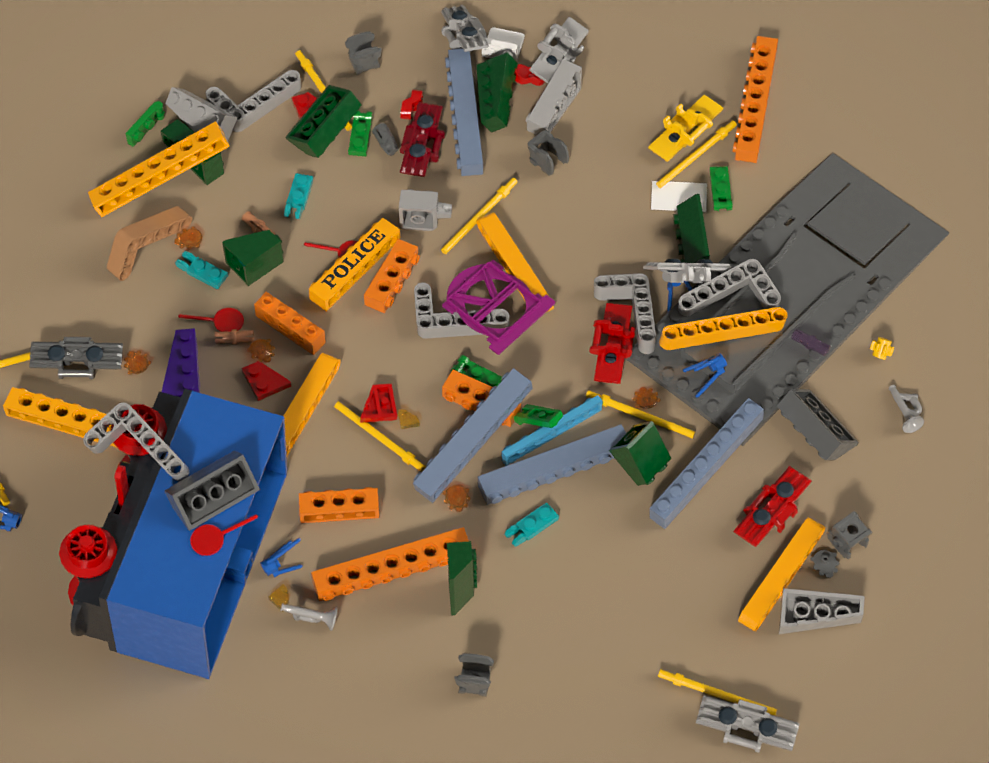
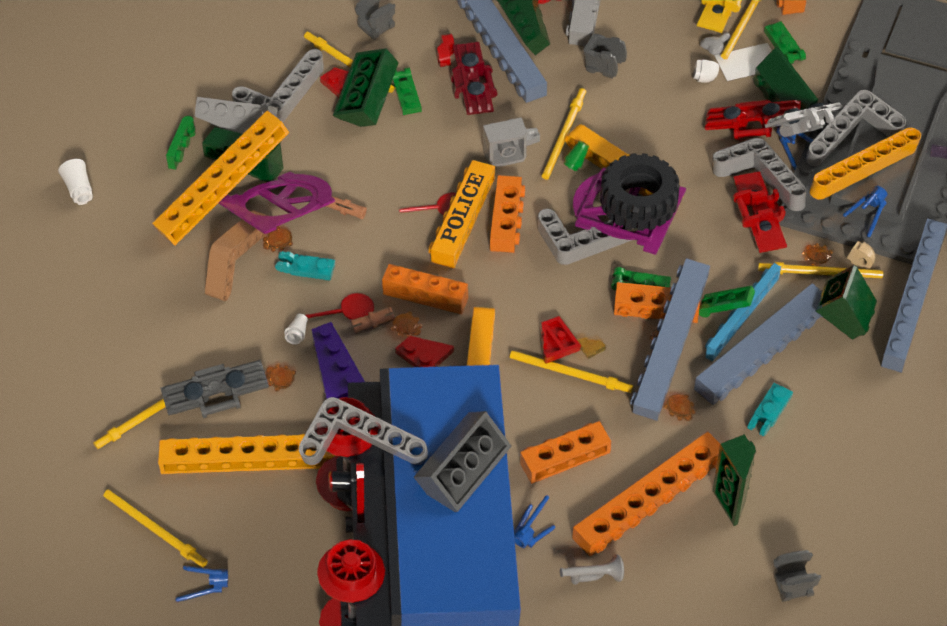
camera: 20 degrees left, 5 degrees down
(43, 131) = (76, 180): none -> white plant
(167, 325) = (296, 330): none -> white cone
(175, 223) = (320, 198): none -> magenta window
(209, 539) = (483, 514): red piece -> none
(253, 255) = (356, 233): dark green slope -> none
(280, 596) = (548, 566): clear yellow tile -> none
(298, 194) = (371, 165): teal hinge -> none
(385, 139) = (435, 88): dark grey hinge -> none
(476, 241) = (575, 158): none -> green cone
(505, 274) = (639, 211): none -> black tyre
(633, 195) = (705, 71): none -> white piece
(647, 246) = (744, 112): none -> red piece
(656, 171) = (715, 44): none -> light grey rock
(683, 412) = (862, 255): none -> tan piece

